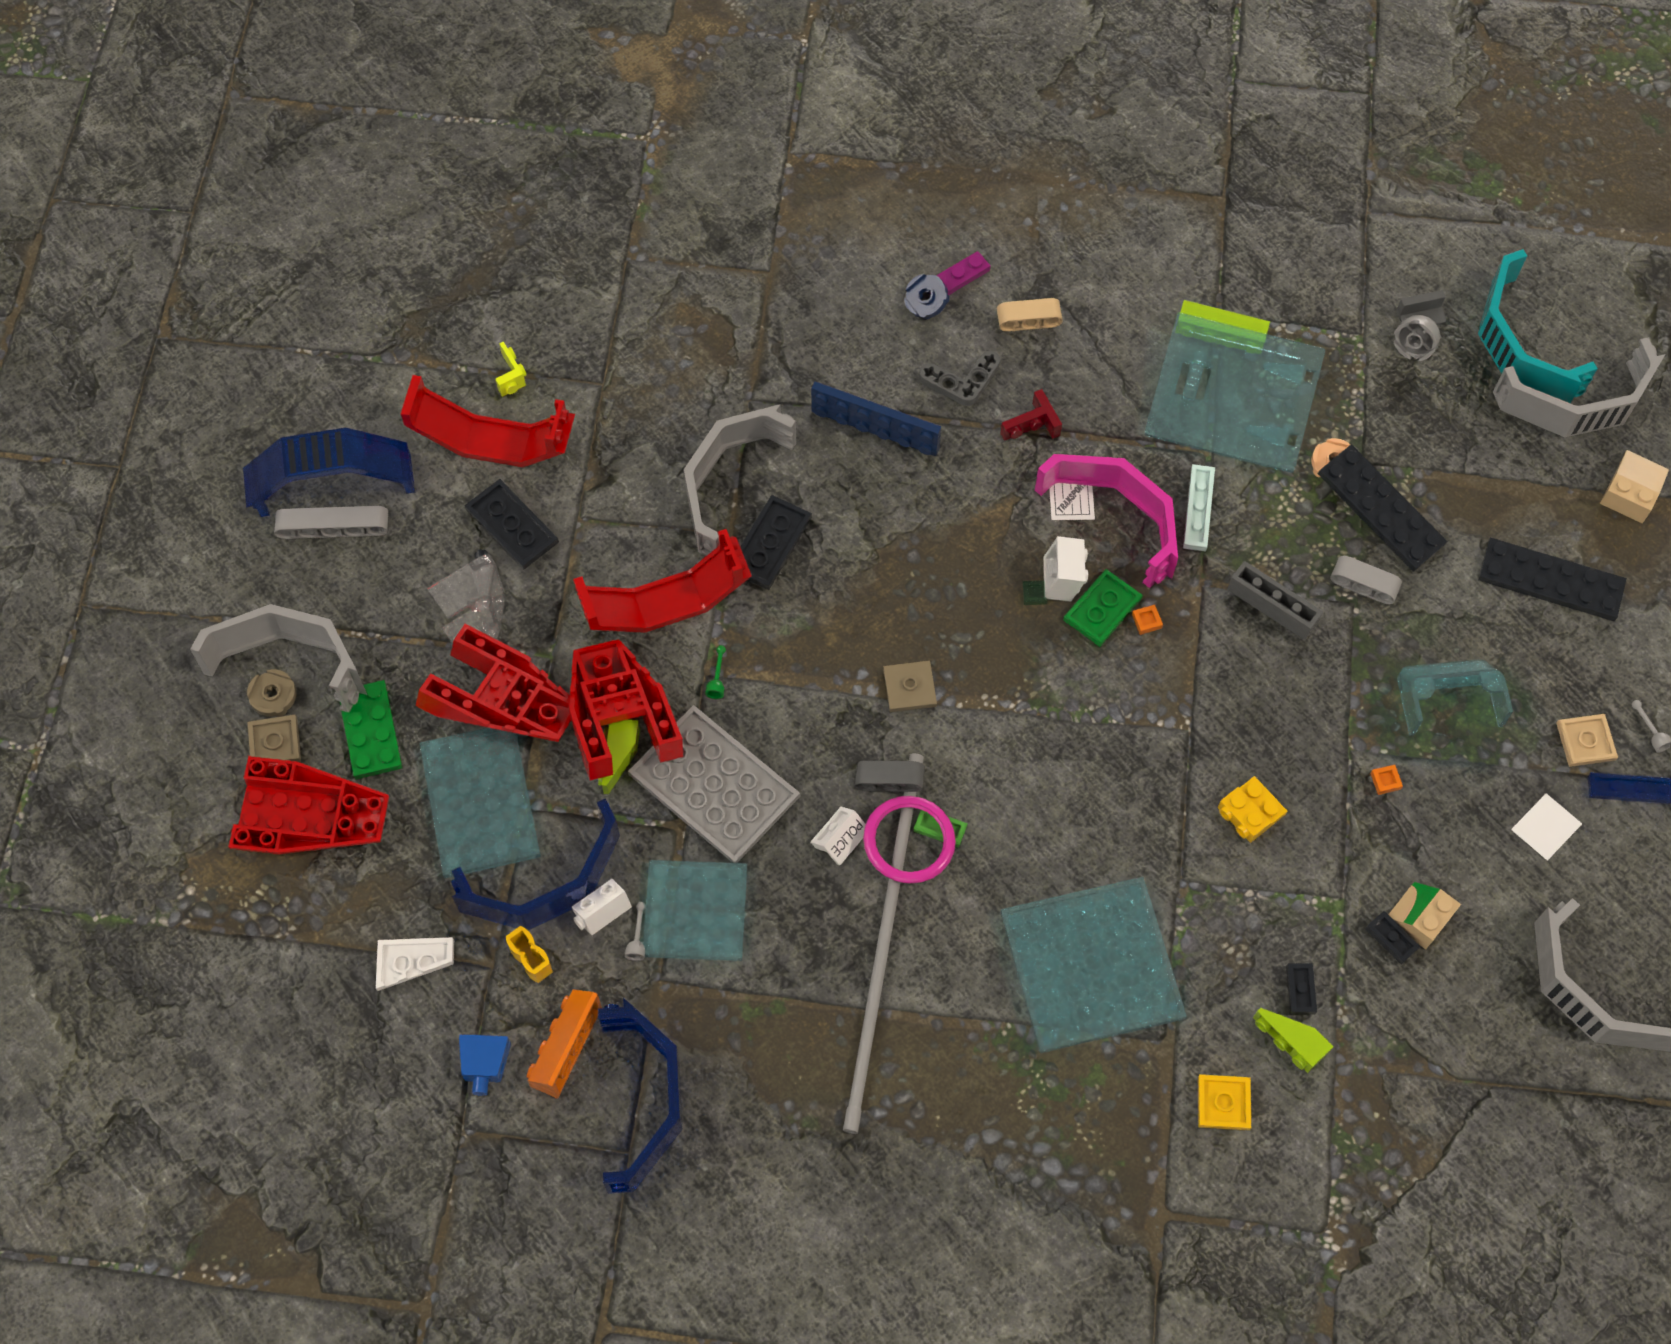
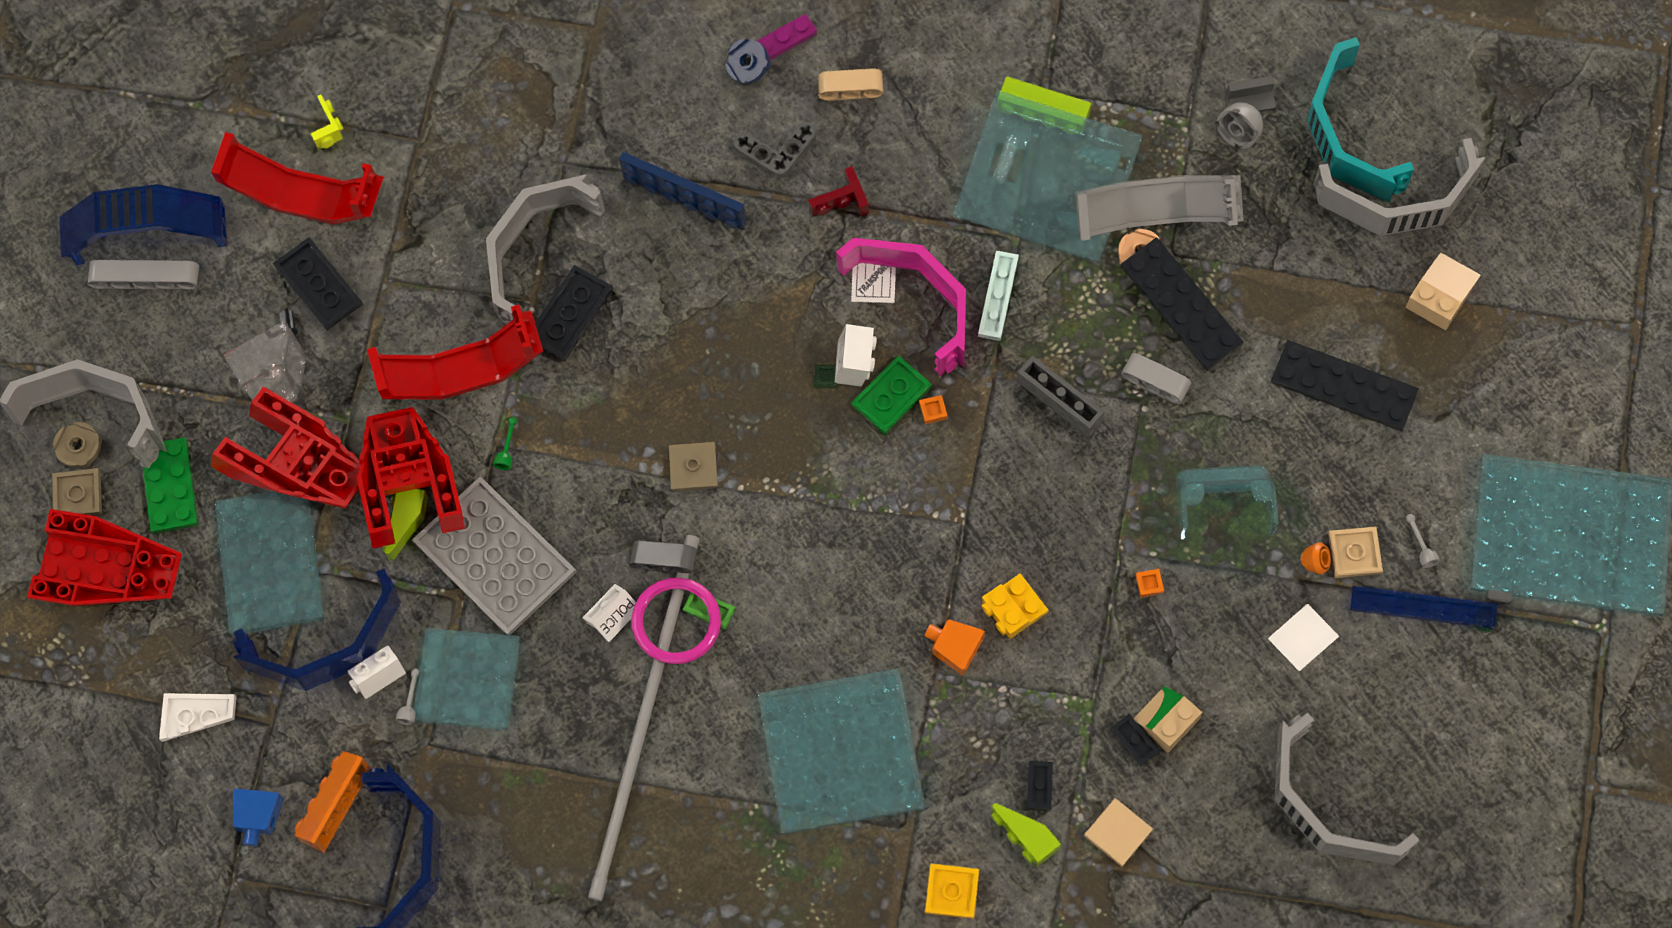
camera: 10 degrees right, 5 degrees up
(529, 954) = (304, 714): yellow brick -> none
(1197, 849) = (955, 644): none -> orange torso
(1355, 410) = (1159, 202): none -> light grey panel
(1387, 1032) = (1118, 832): none -> tan tile
(1550, 747) = (1316, 558): none -> orange cone

